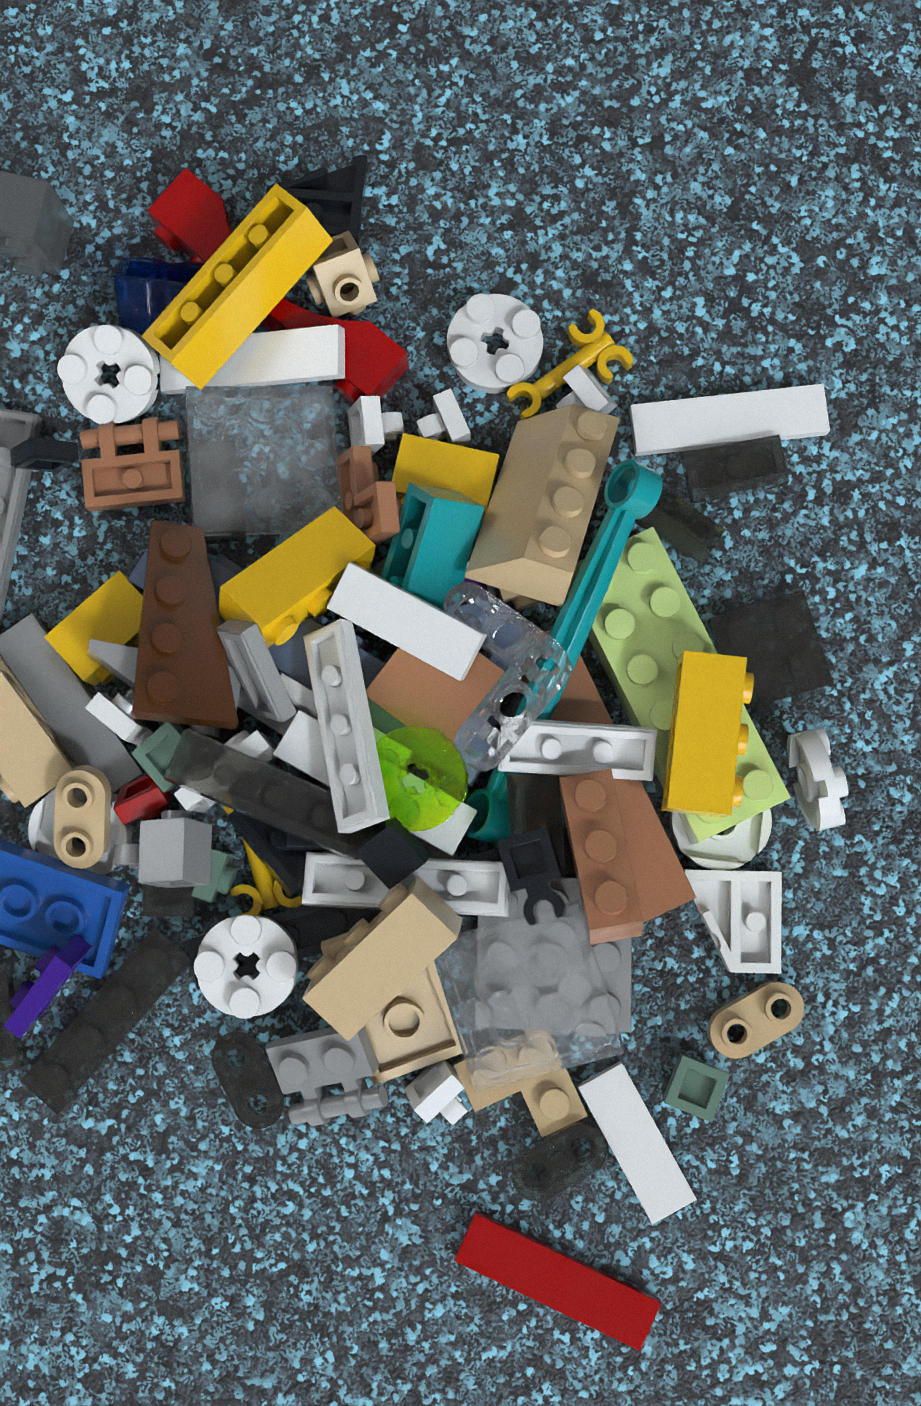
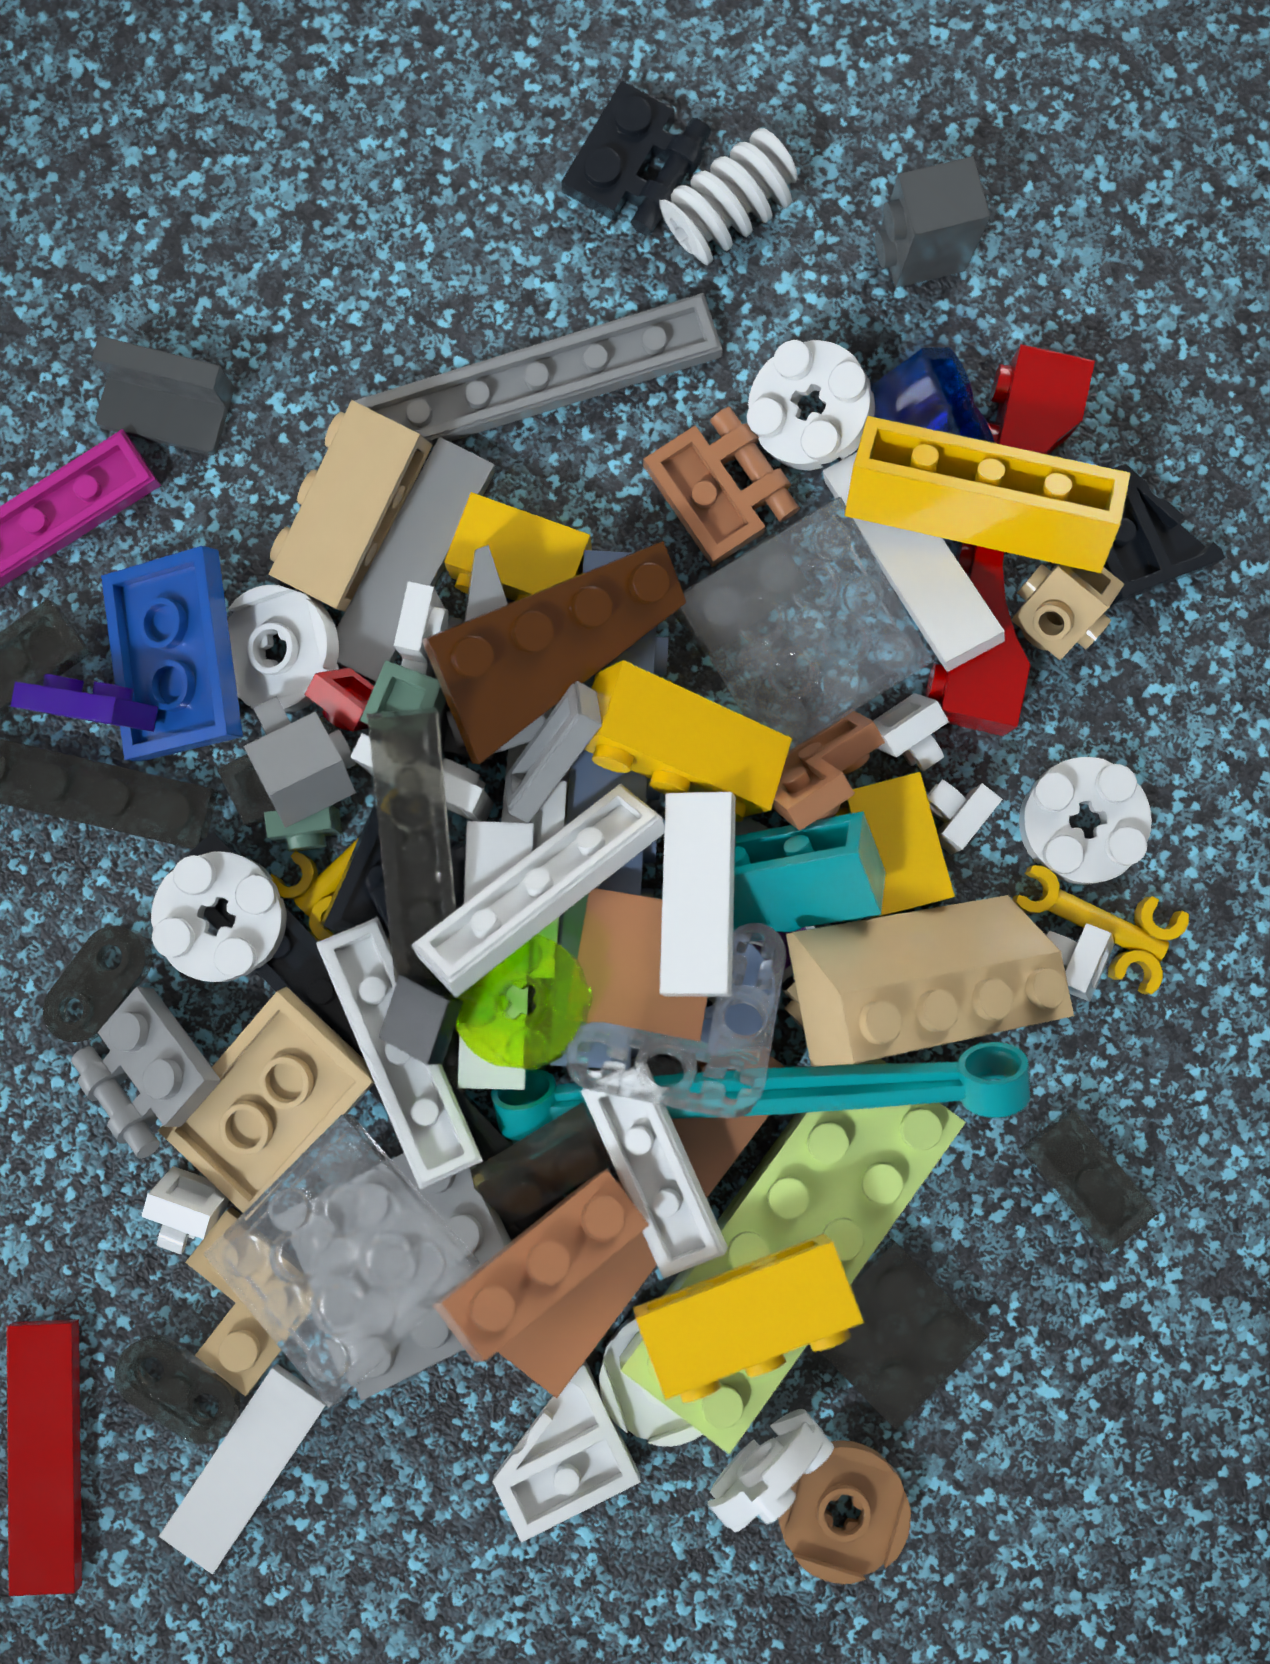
camera: 60 degrees right, 0 degrees up
(44, 454) = (678, 381): black tile -> none
(82, 819) = (284, 645): tan plate -> none
(381, 957) = (297, 1069): tan brick -> none
(531, 865) = (489, 1191): black plate -> none
(683, 526) = (986, 1159): clear smoke plate -> none
(695, 1087) = (340, 1507): sand green plate -> none
(728, 419) = (1144, 1143): white tile -> none
(756, 1018) = (459, 1533): tan plate -> none
(896, 745) = (863, 1543): none -> medium nougat plate

